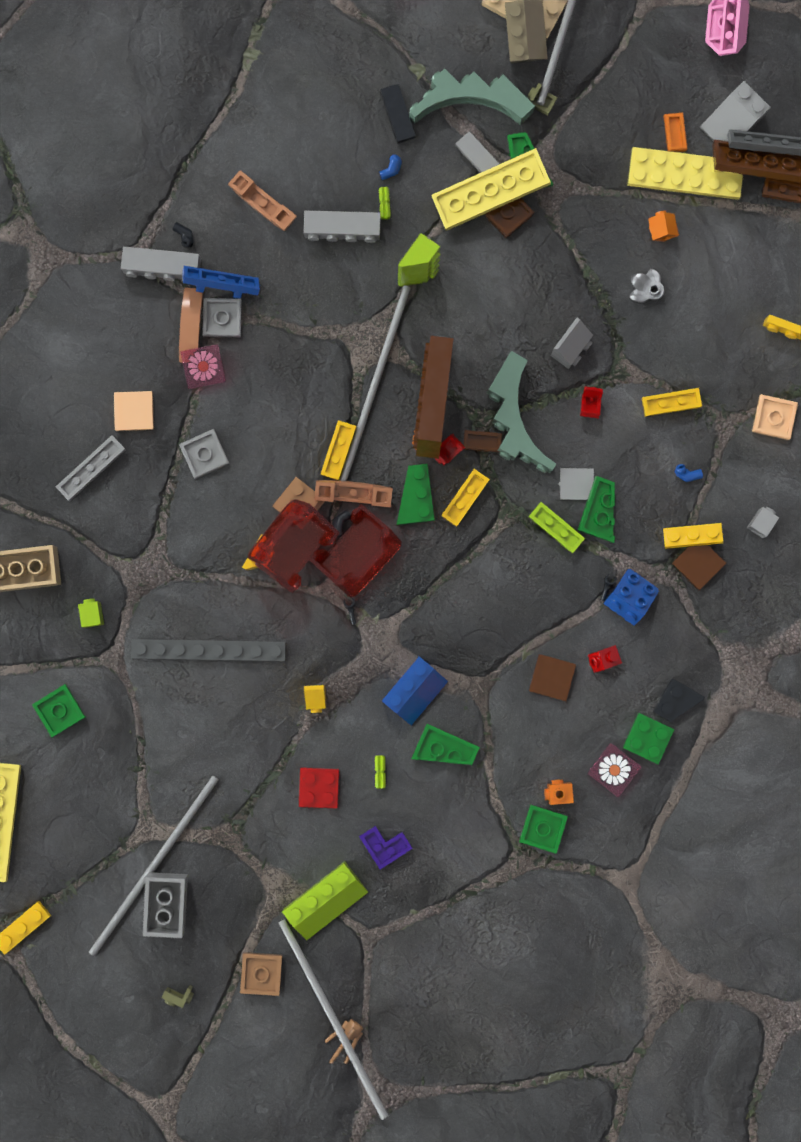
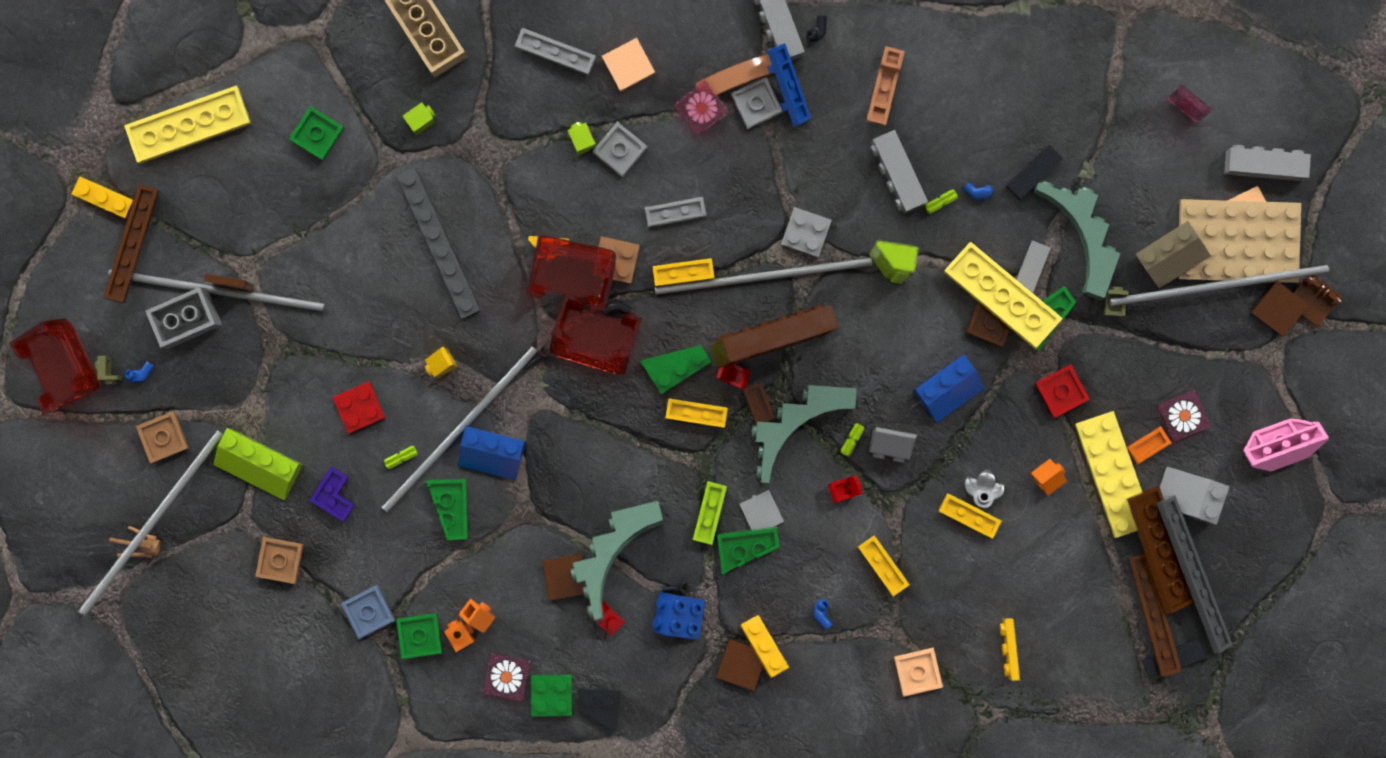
camera: 70 degrees right, 0 degrees up
(76, 921) = (131, 244): none -> reddish brown plate
(150, 1036) = (58, 362): none -> clear red windscreen
(153, 850) = (227, 282): none -> reddish brown tile
(178, 481) = (581, 138): none -> lime brick
(196, 968) = (139, 375): none -> blue arm
(282, 432) = (675, 212): none -> light grey tile
(353, 492) = (650, 304): nougat slope -> none
(354, 329) = (806, 232): none -> light grey plate
(380, 709) = (459, 429): none -> light grey piece
(419, 920) = (279, 560): none -> medium nougat plate
(501, 863) = (368, 612): none -> sand blue plate
(534, 603) = (593, 571): none -> sand green arch
(547, 273) = (949, 388): none -> blue slope
(549, 374) = (854, 436): none -> lime piece
(550, 769) = (477, 615): none -> orange brick
(595, 181) = (1062, 391): none -> red plate
(664, 91) = (1183, 415): none -> tile
(664, 309) = (969, 516): none -> yellow plate
(763, 522) = (810, 707): light grey brick -> none

